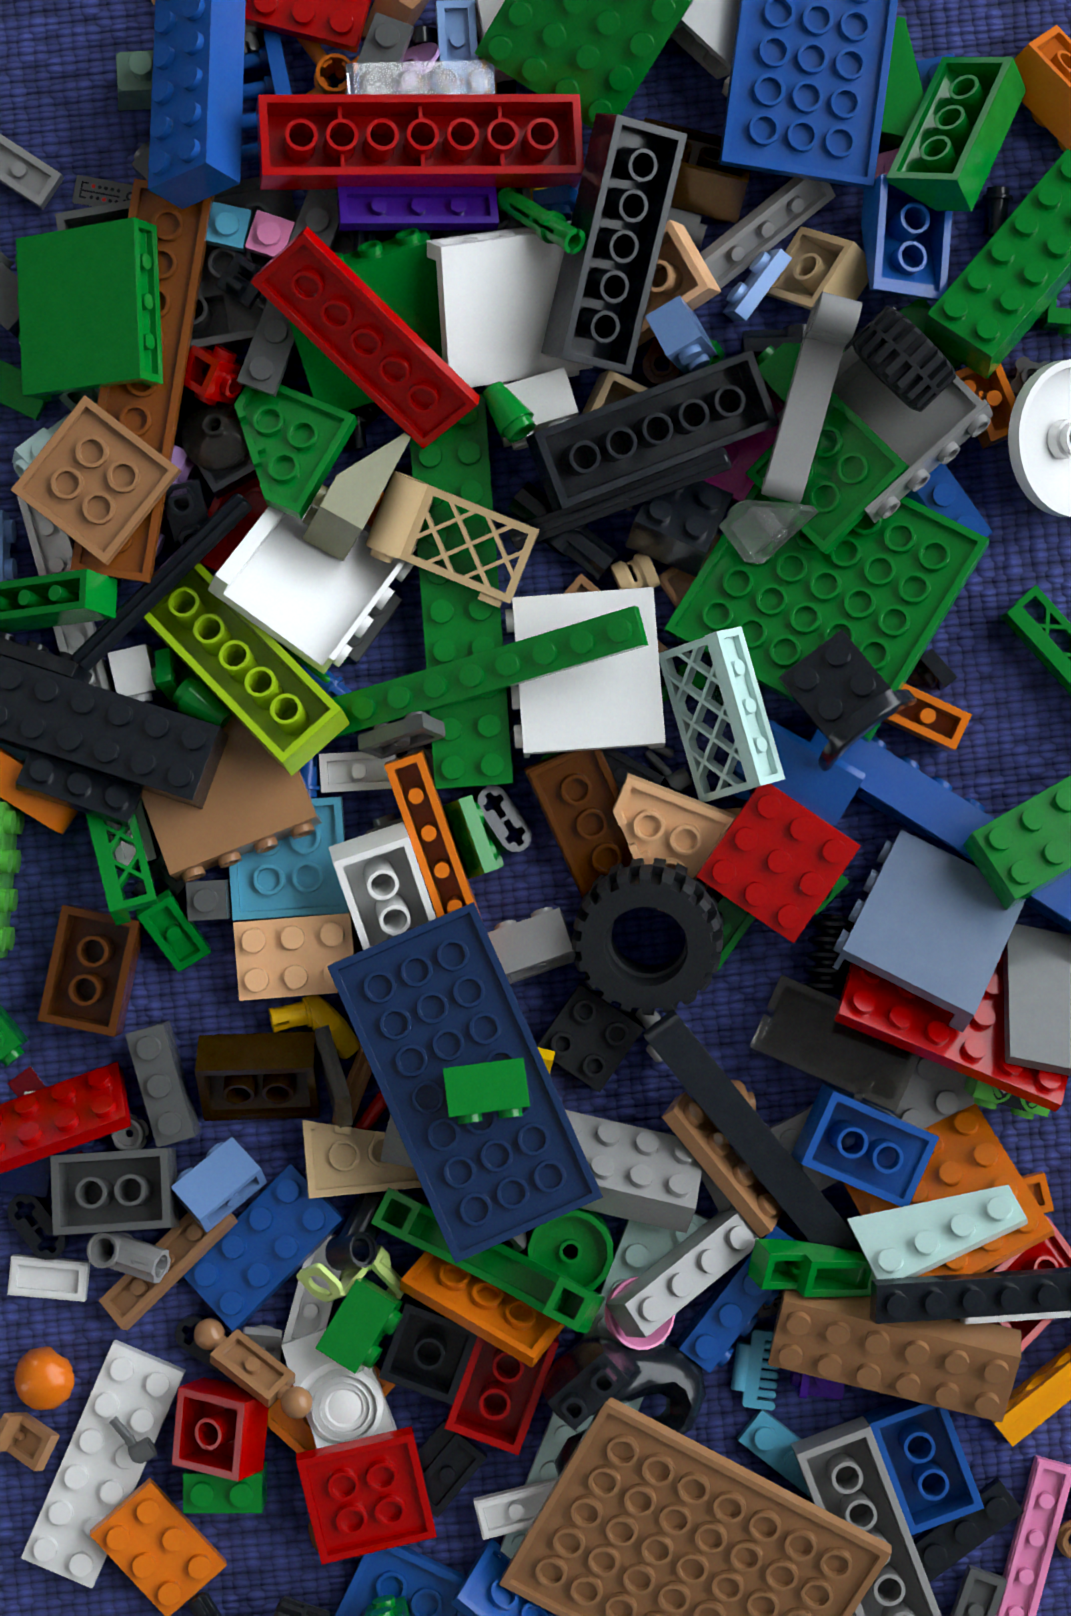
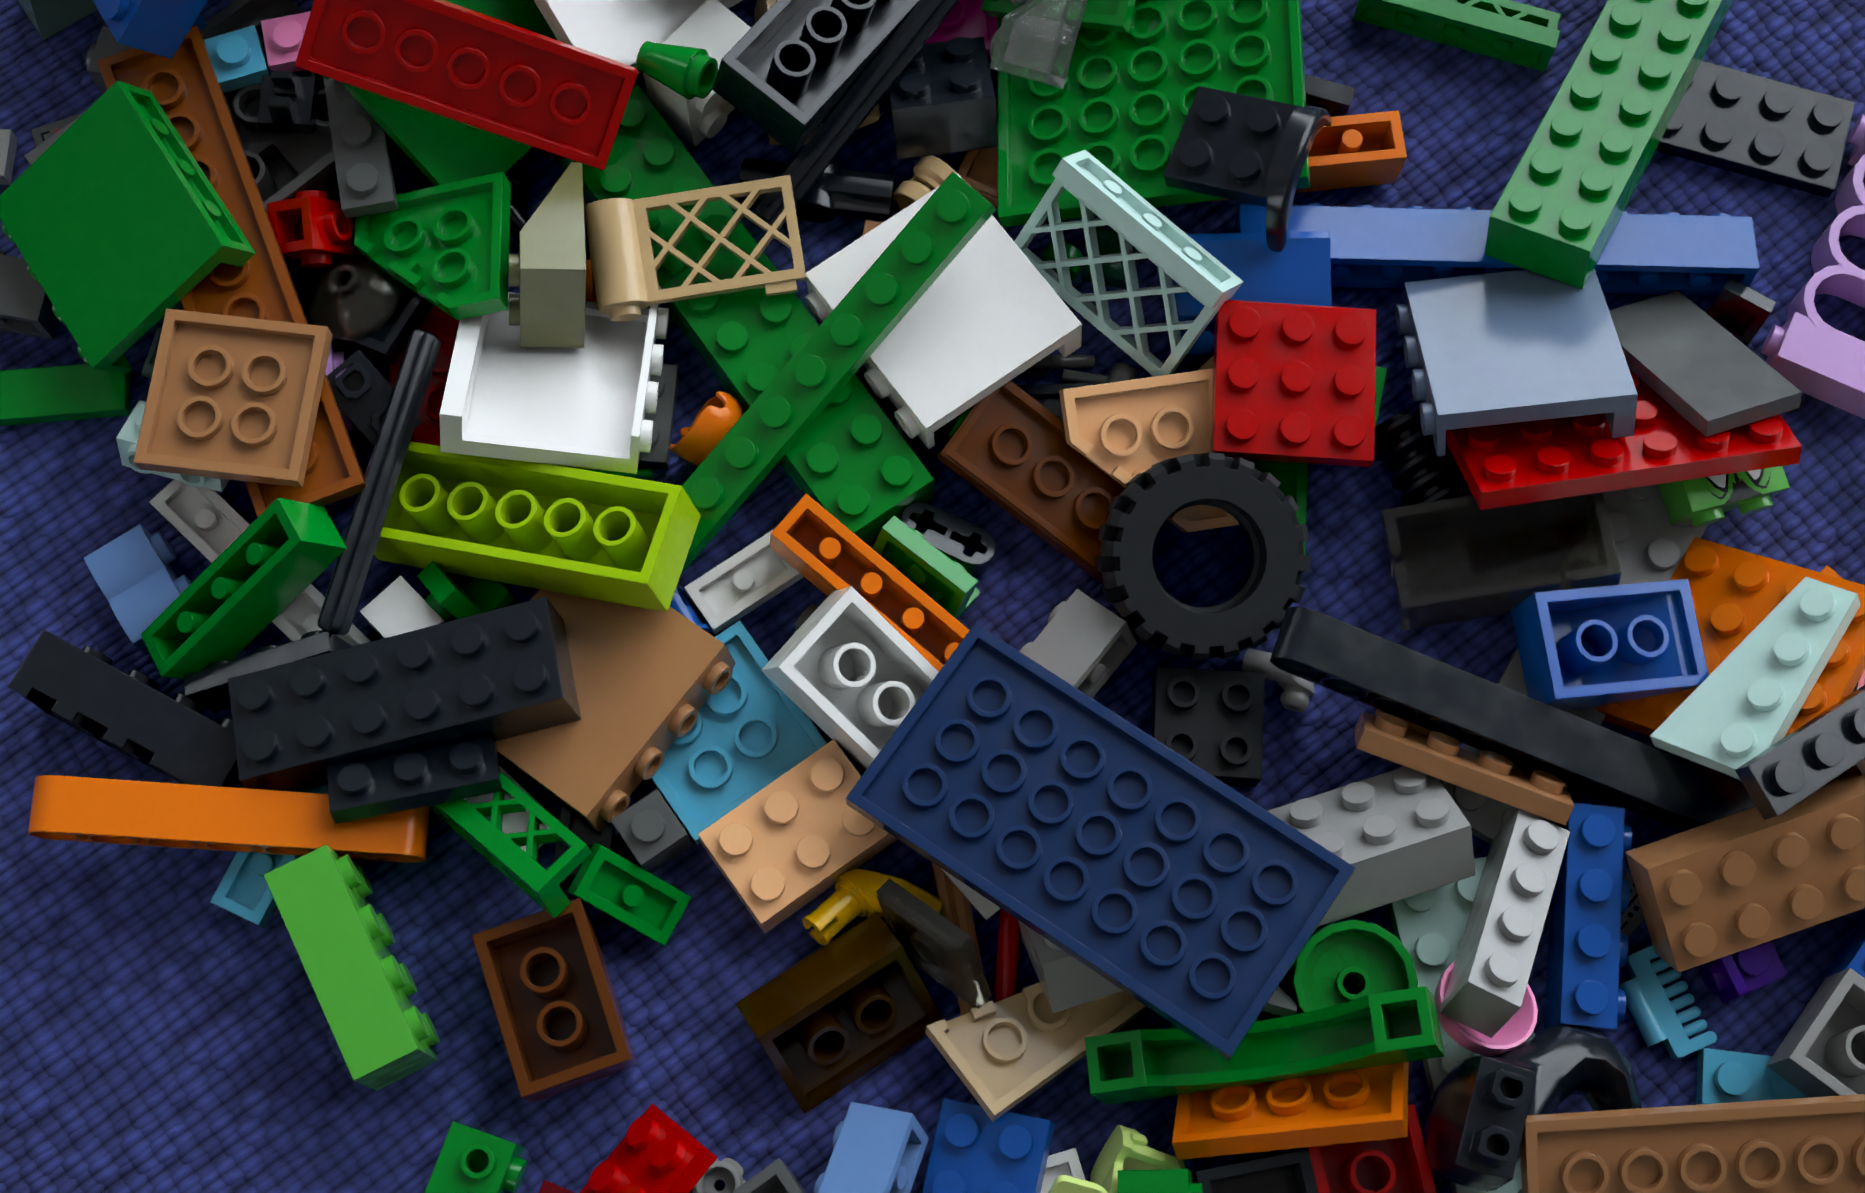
camera: 35 degrees left, 15 degrees down
(163, 1083) = (725, 1090): dark grey brick -> none
(200, 703) = (499, 591): green cone -> none
(357, 1241) = (1086, 1134): black piece -> none
(395, 659) = (708, 428): none -> orange hair
(400, 736) = (770, 496): dark grey plate -> none
(486, 1088) = (1132, 817): green brick -> none
(810, 1269) = (1650, 819): green slope -> none

